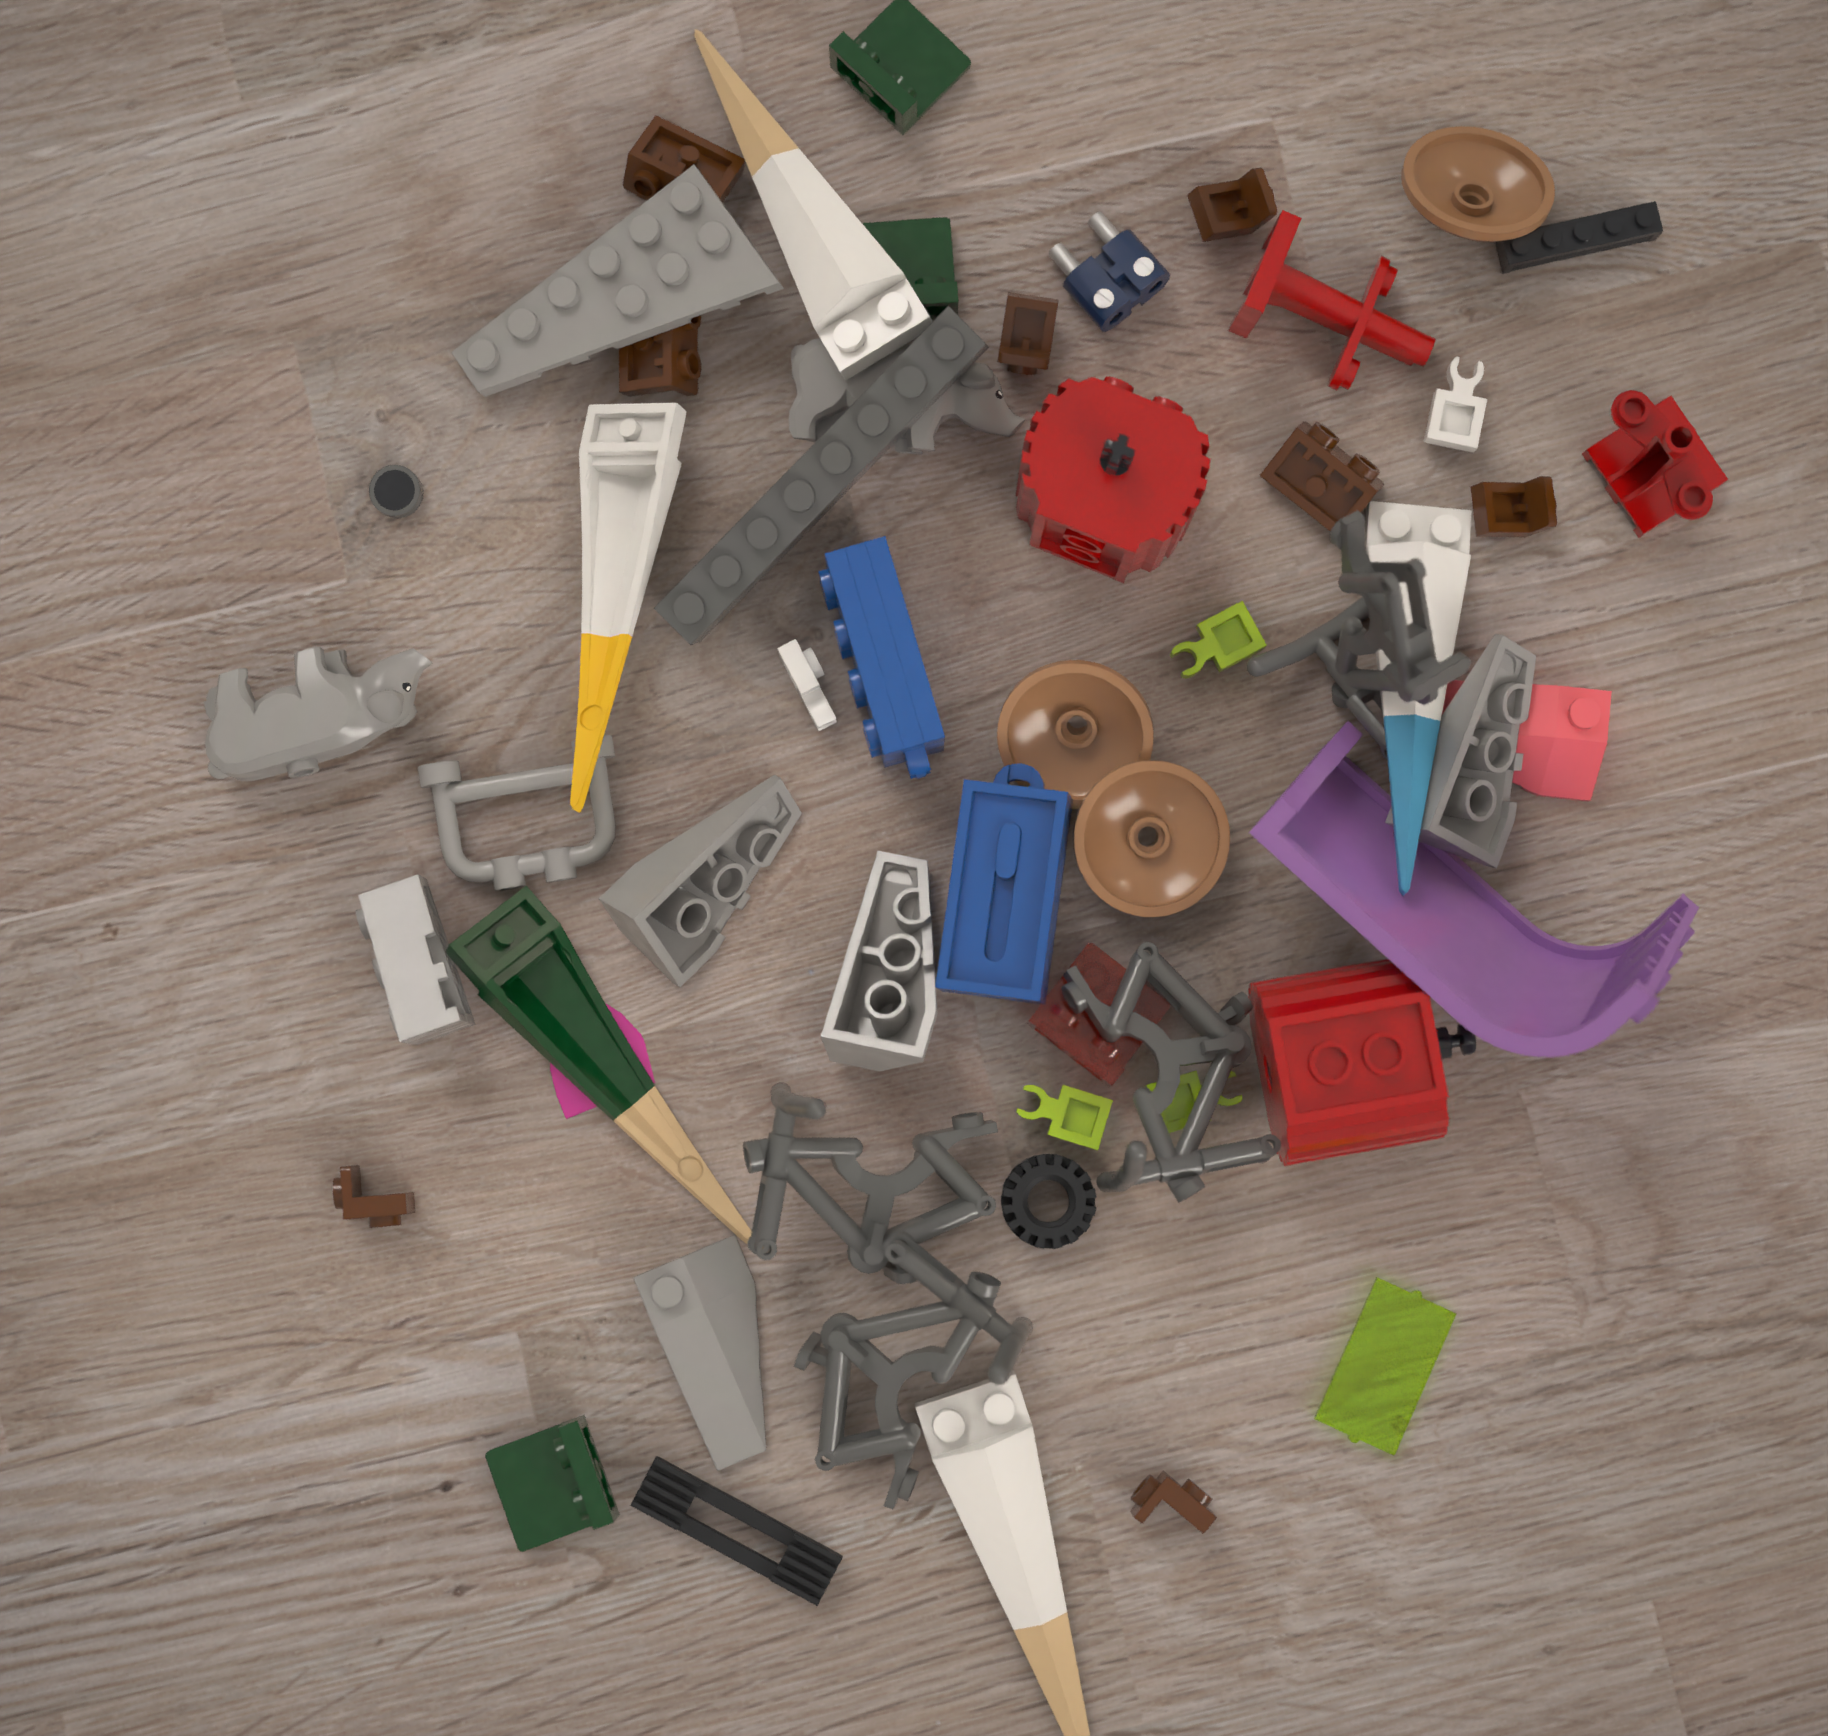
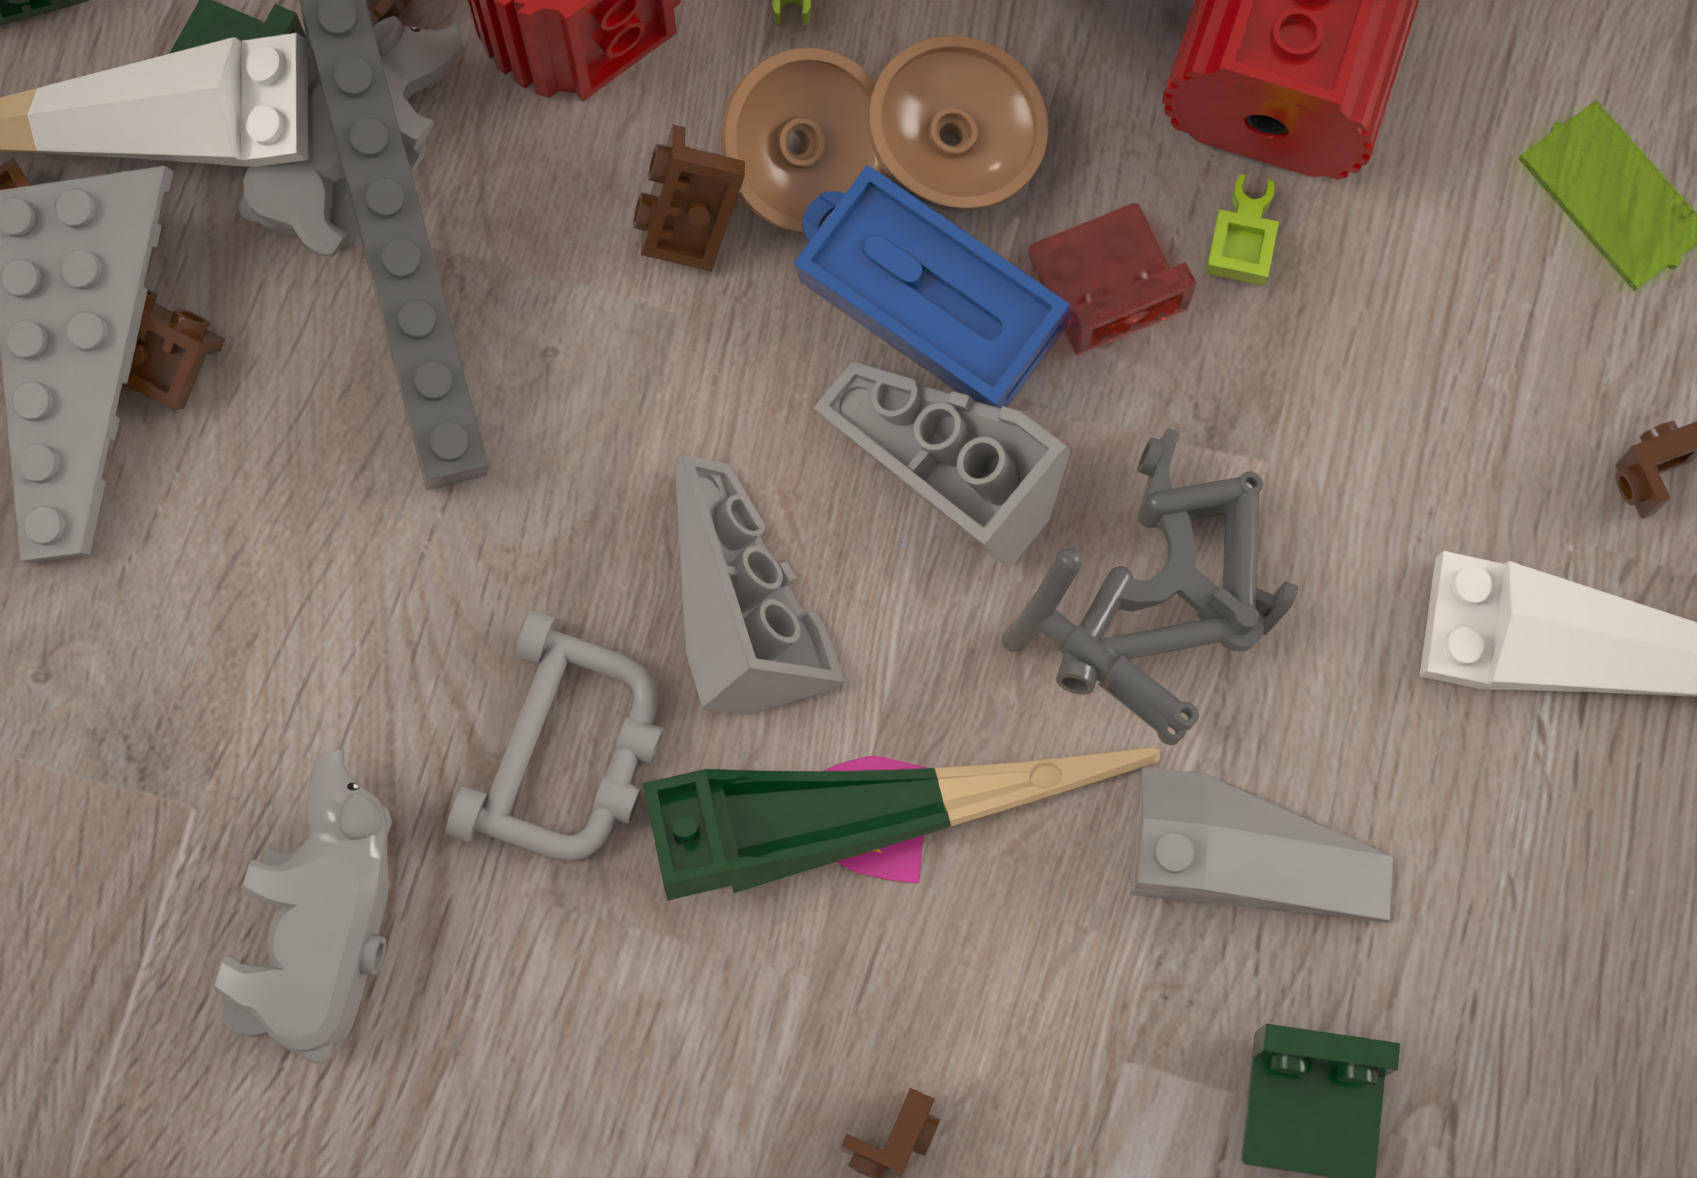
camera: 60 degrees left, 10 degrees down
(396, 491) = (131, 701): tile -> none
(412, 961) = (656, 947): wedge -> none
(625, 497) = (291, 458): white plate -> none
(804, 671) = (586, 380): white plate -> none
(805, 1564) = (1540, 879): black container -> none
(848, 1341) = (1324, 695): dark grey piece -> none
(885, 654) = (616, 280): blue piece -> none
(973, 672) = (688, 203): none -> reddish brown bracket
(1073, 1116) = (1198, 355): lime plate -> none
(1080, 1208) = (1285, 391): black tyre -> none
(1219, 1043) = (1202, 169): dark grey piece -> none

